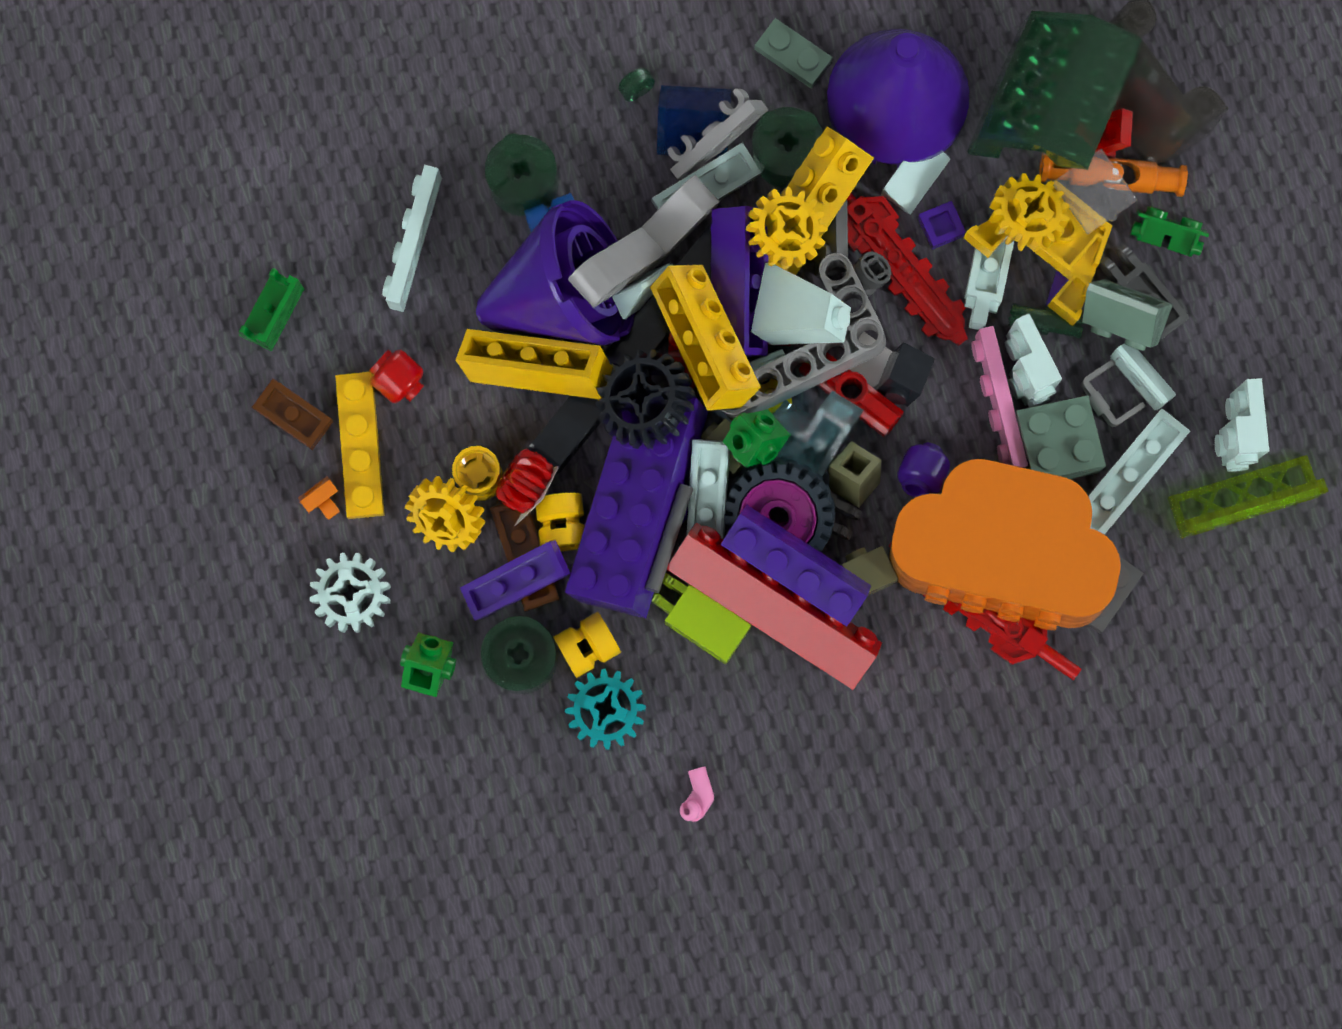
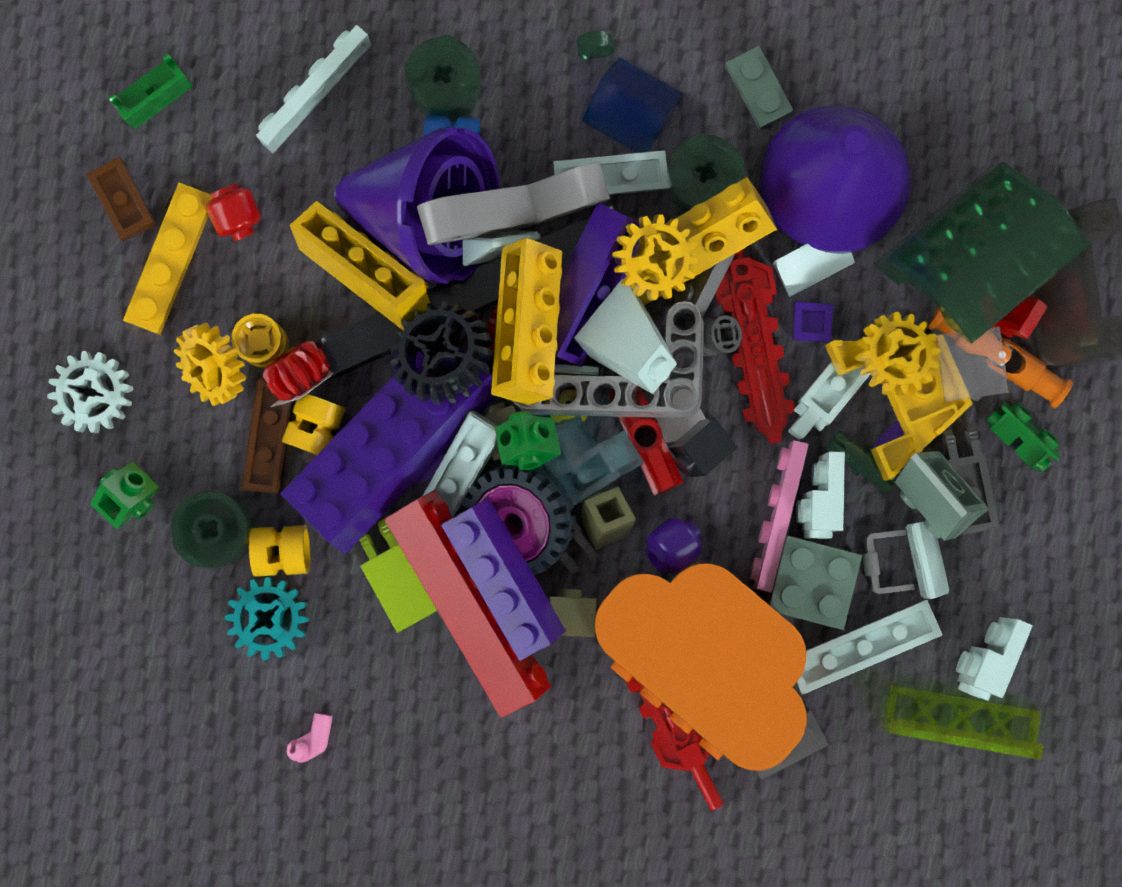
camera: 30 degrees right, 5 degrees up
(319, 496) = (107, 290): orange tile -> none
(515, 580) = (243, 458): dark purple plate -> none
(669, 538) = (401, 492): dark grey bar -> none
(717, 135) = (642, 132): light grey plate -> none

